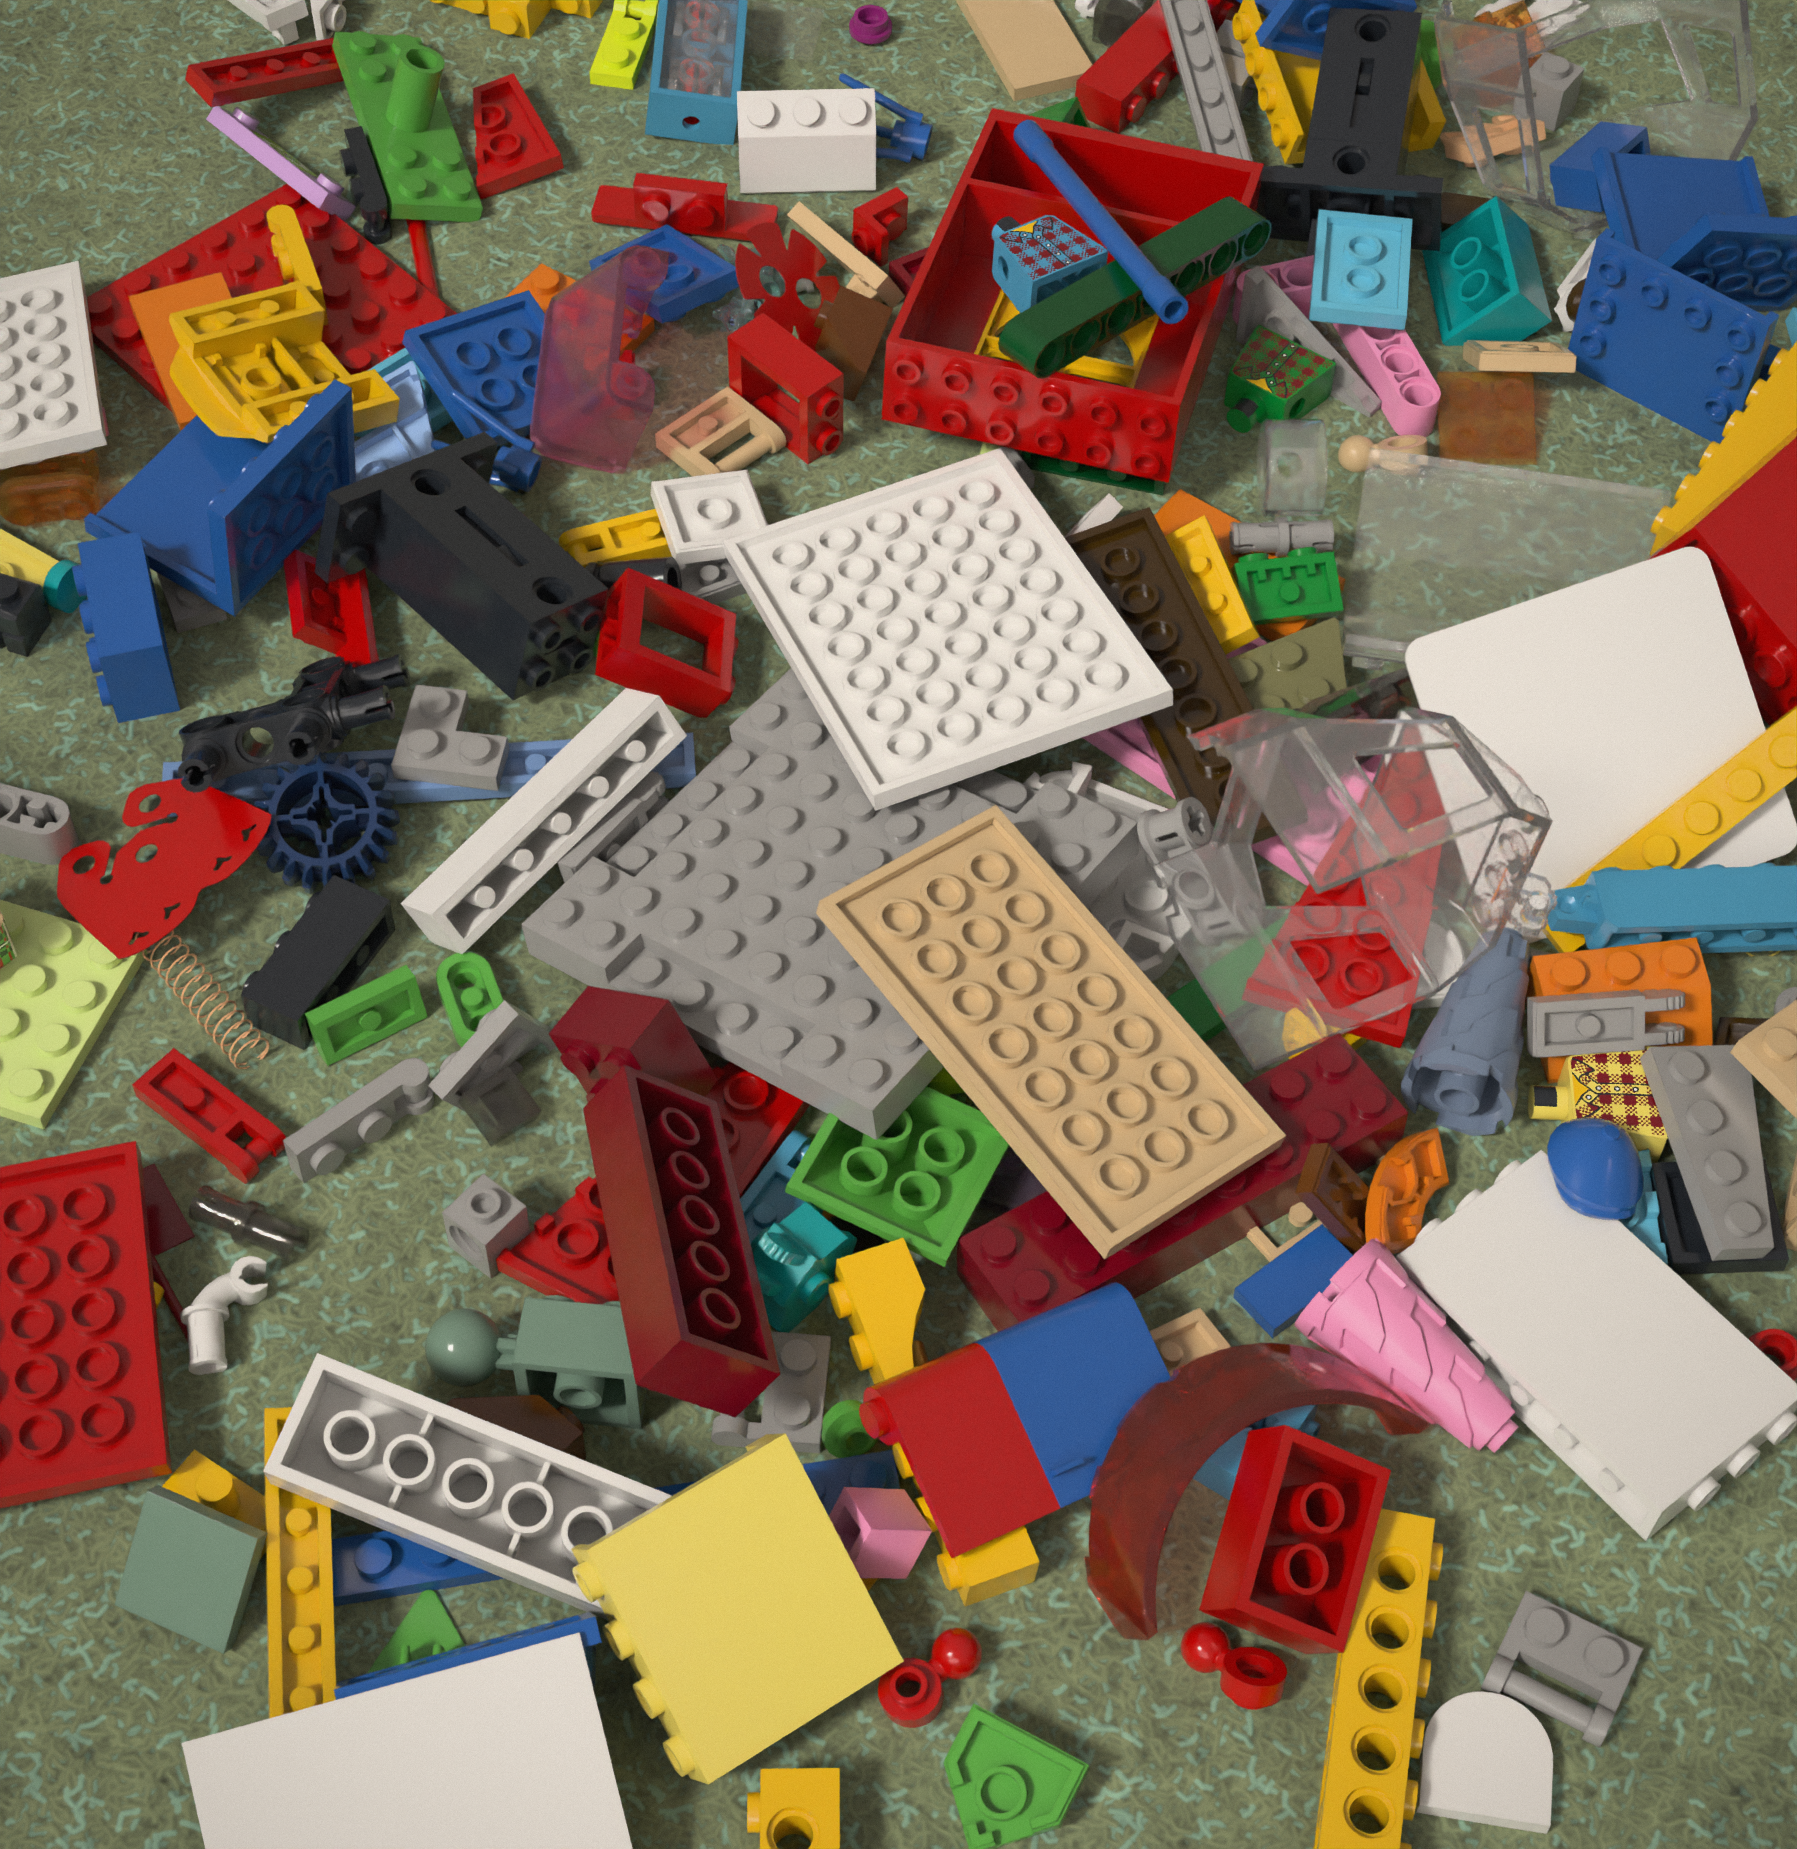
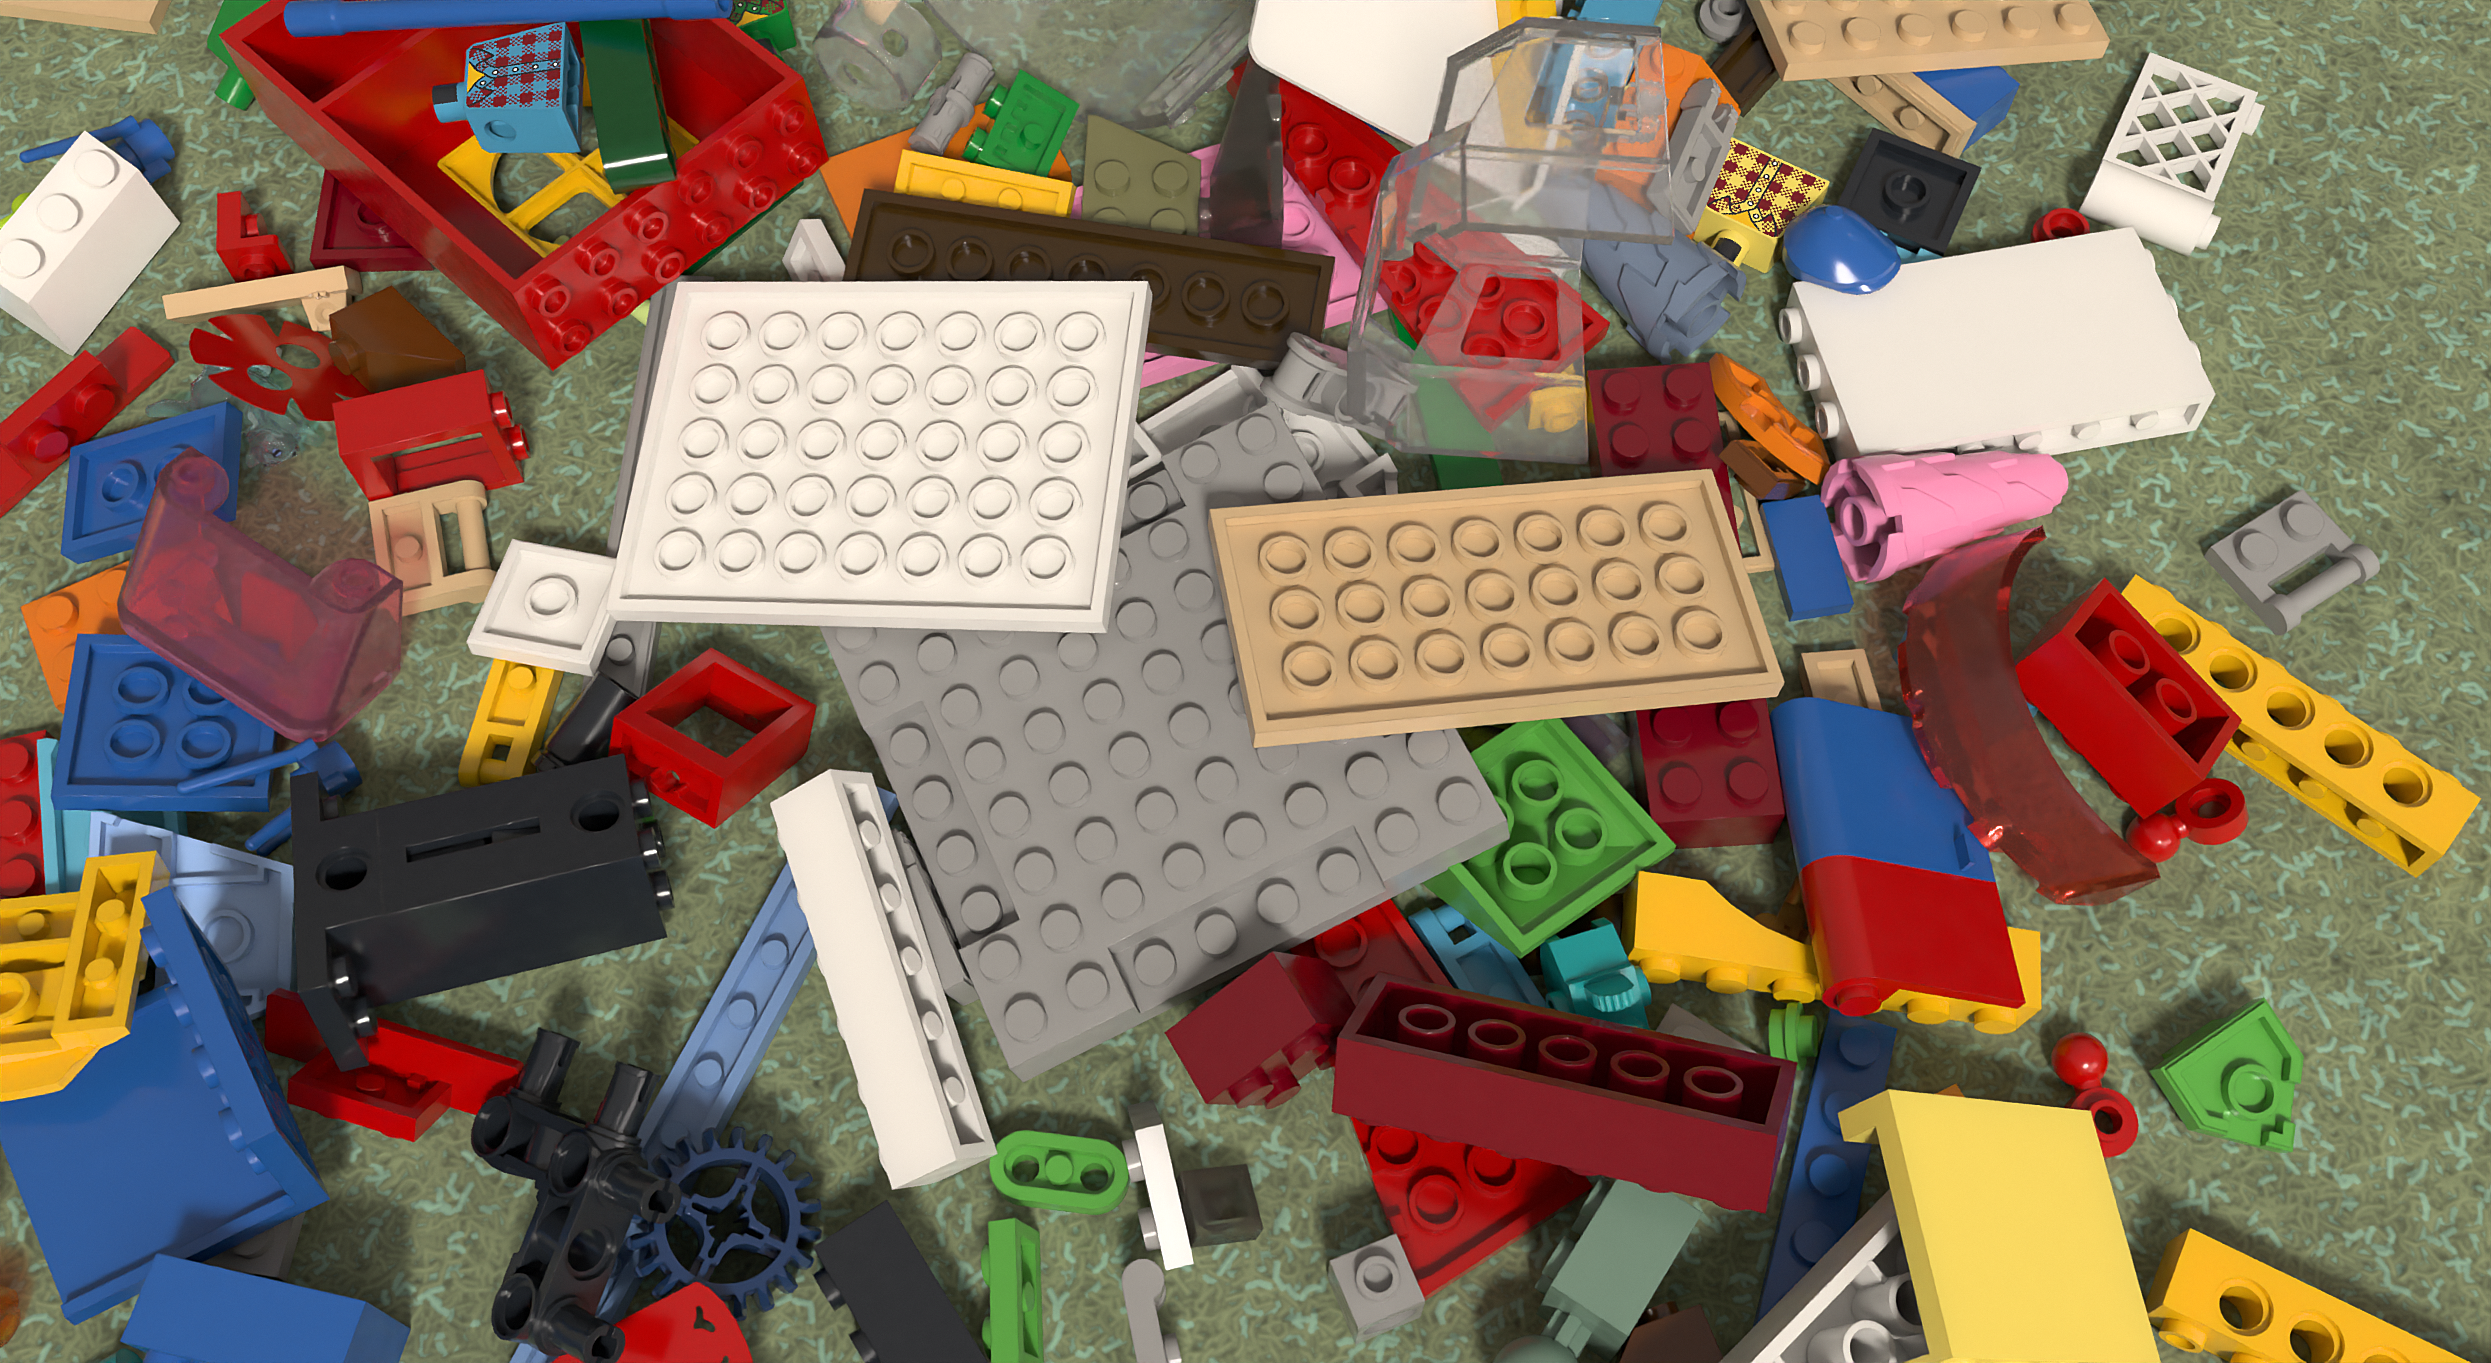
camera: 60 degrees left, 10 degrees up
(437, 749) = (697, 1051): light grey plate -> none
(880, 1530) = (1938, 1055): bright pink brick -> none
(1487, 1764) = (2361, 662): white tile -> none
(1715, 1138) = (1840, 145): light grey wing -> none

